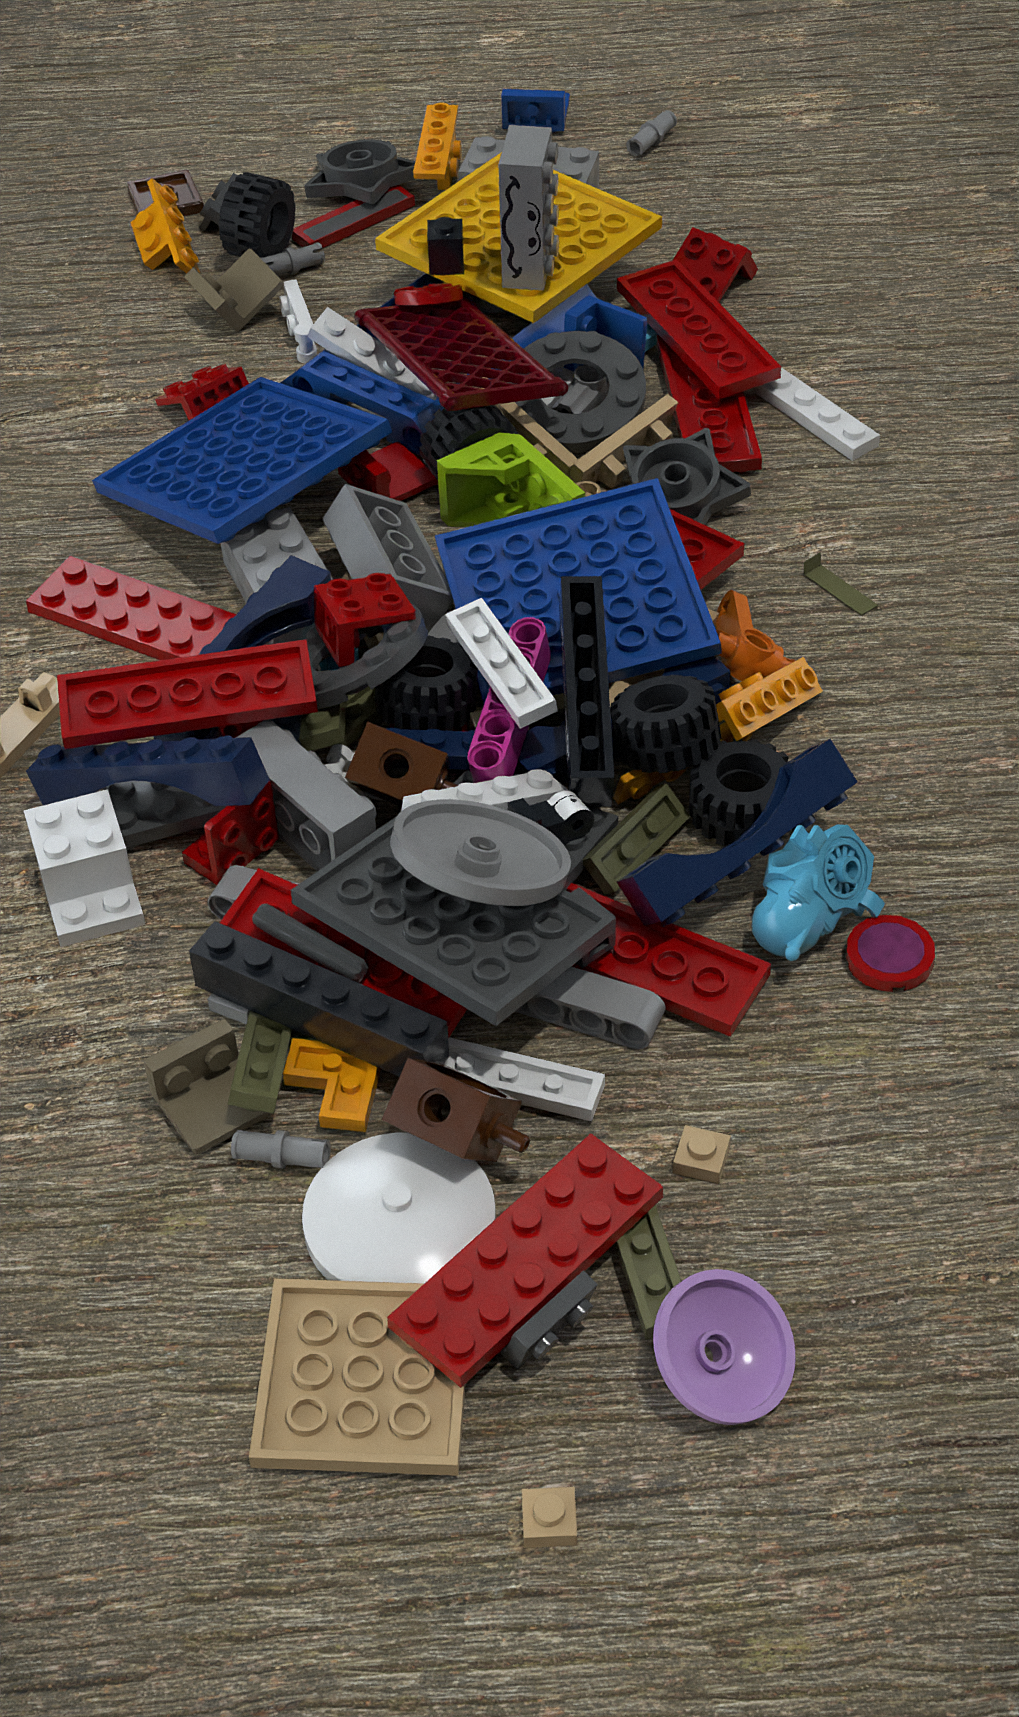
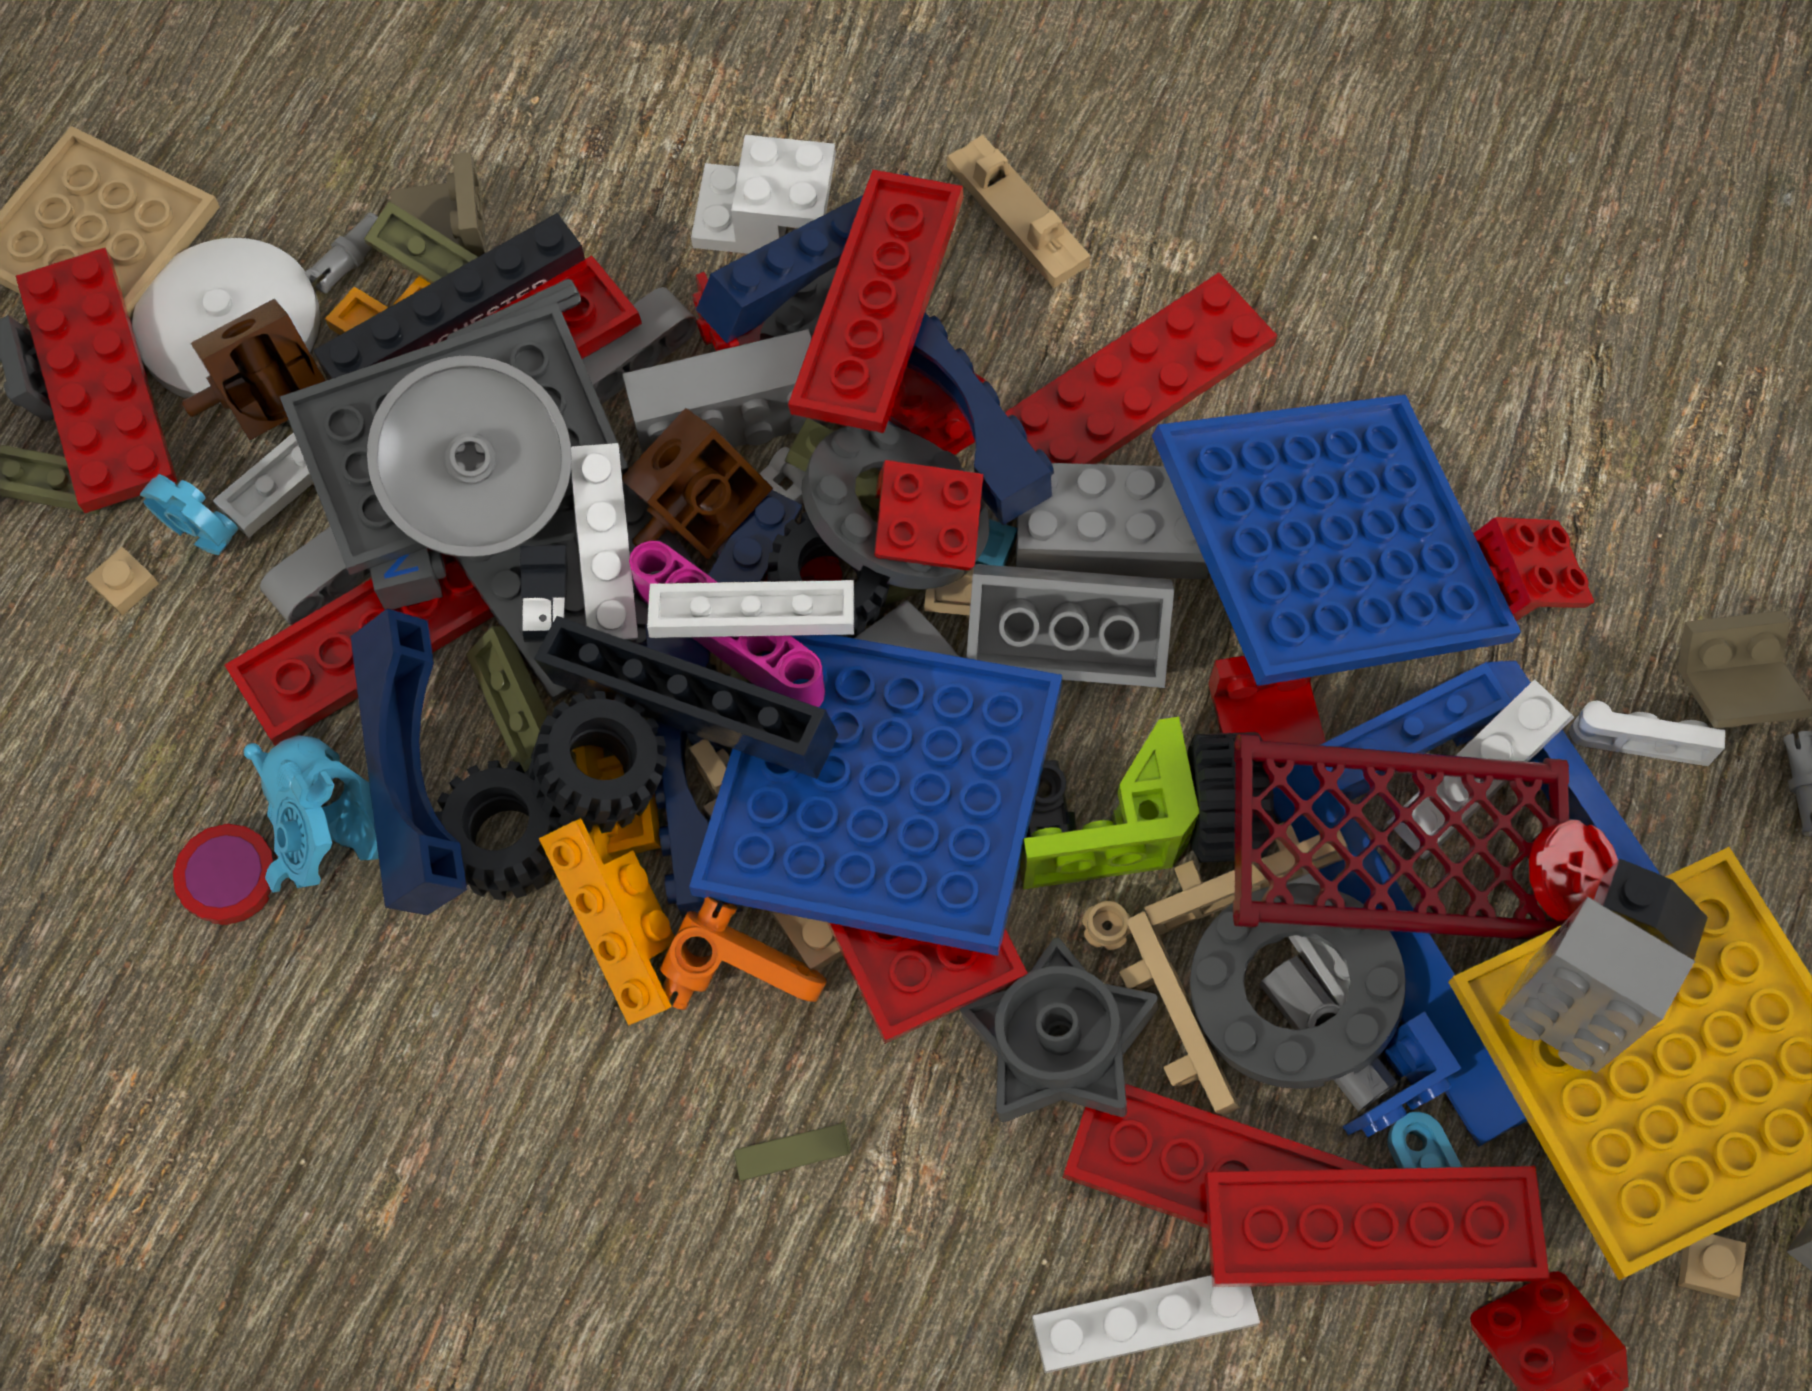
camera: 115 degrees right, 20 degrees up
(623, 1104) = (183, 511): none -> medium azure plate

